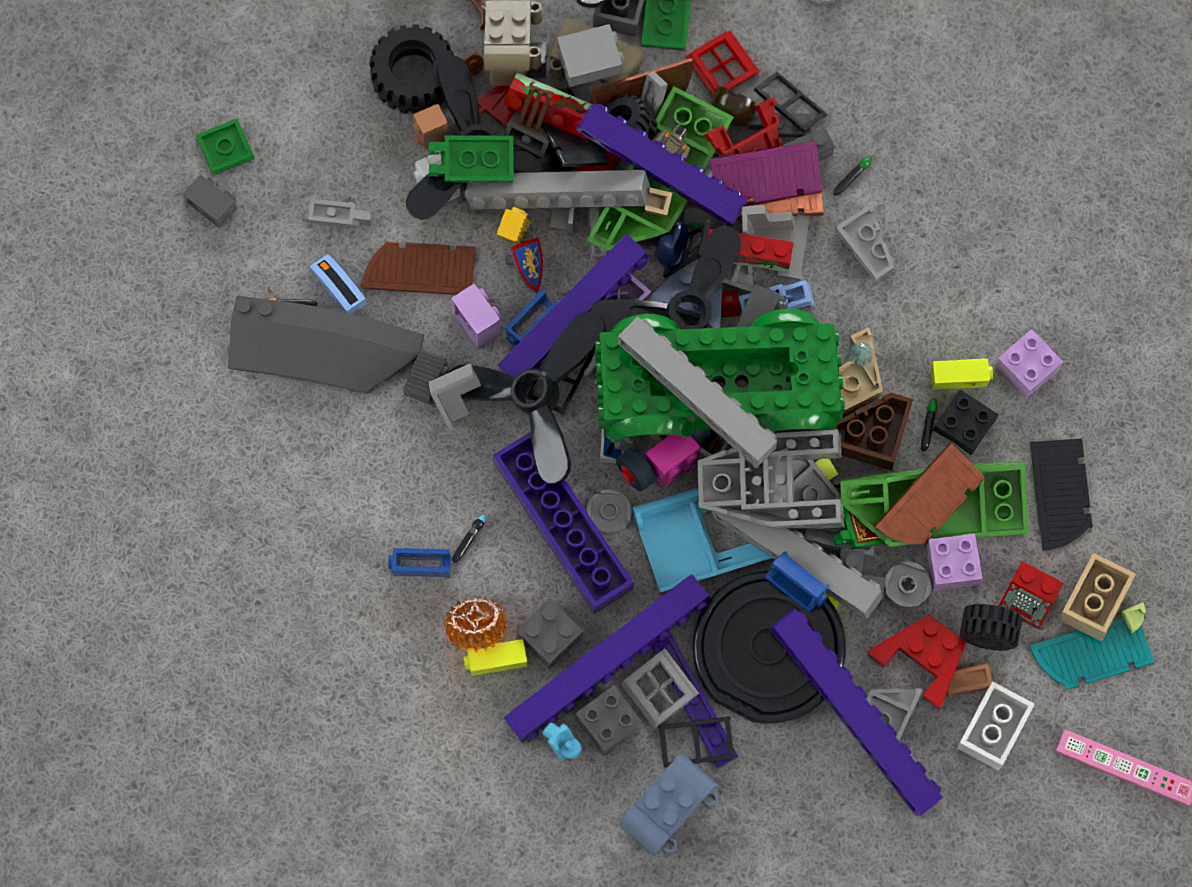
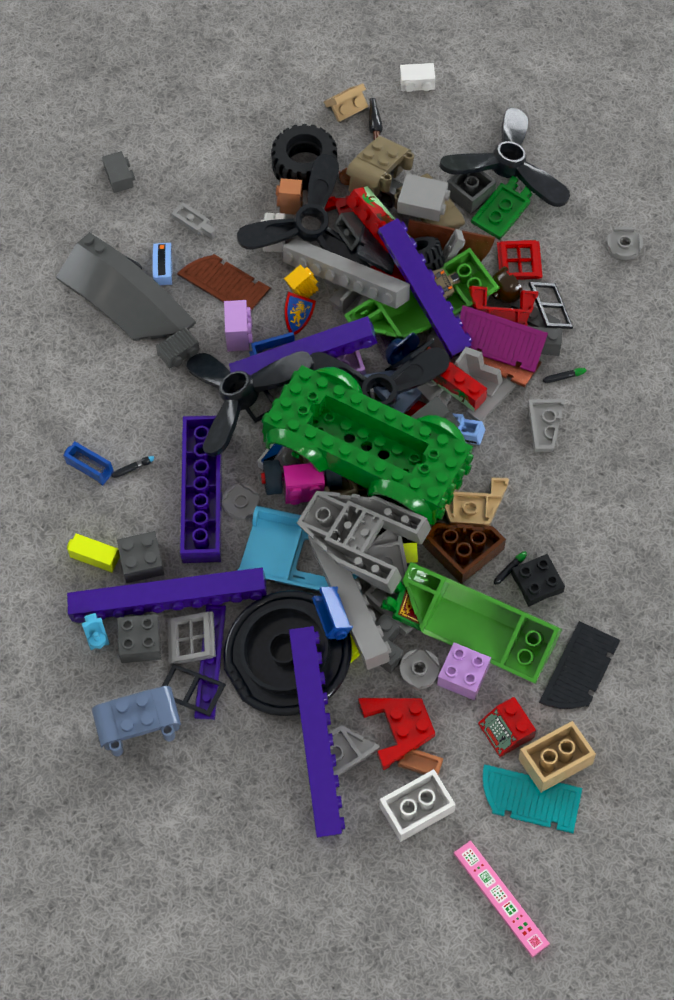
camera: 35 degrees right, 10 degrees down
(225, 147) = (152, 147): green tile -> none
(448, 391) = (180, 365): light grey panel -> none
(473, 159) = (300, 224): green tile -> none
(475, 624) = (93, 520): clear orange gear -> none
(529, 122) = (359, 208): reddish brown tile -> none
(657, 202) = (408, 315): tan window -> none
(697, 392) = (339, 436): light grey brick -> none
(861, 353) = (490, 491): clear light blue tile -> none
(931, 498) = (472, 612): copper piece -> none
(961, 374) = (556, 545): neon yellow brick -> none
(990, 627) = (459, 730): black tyre -> none
(1029, 363) = (611, 564): lavender brick -> none
(1134, 617) = (578, 789): yellowish green tile -> none

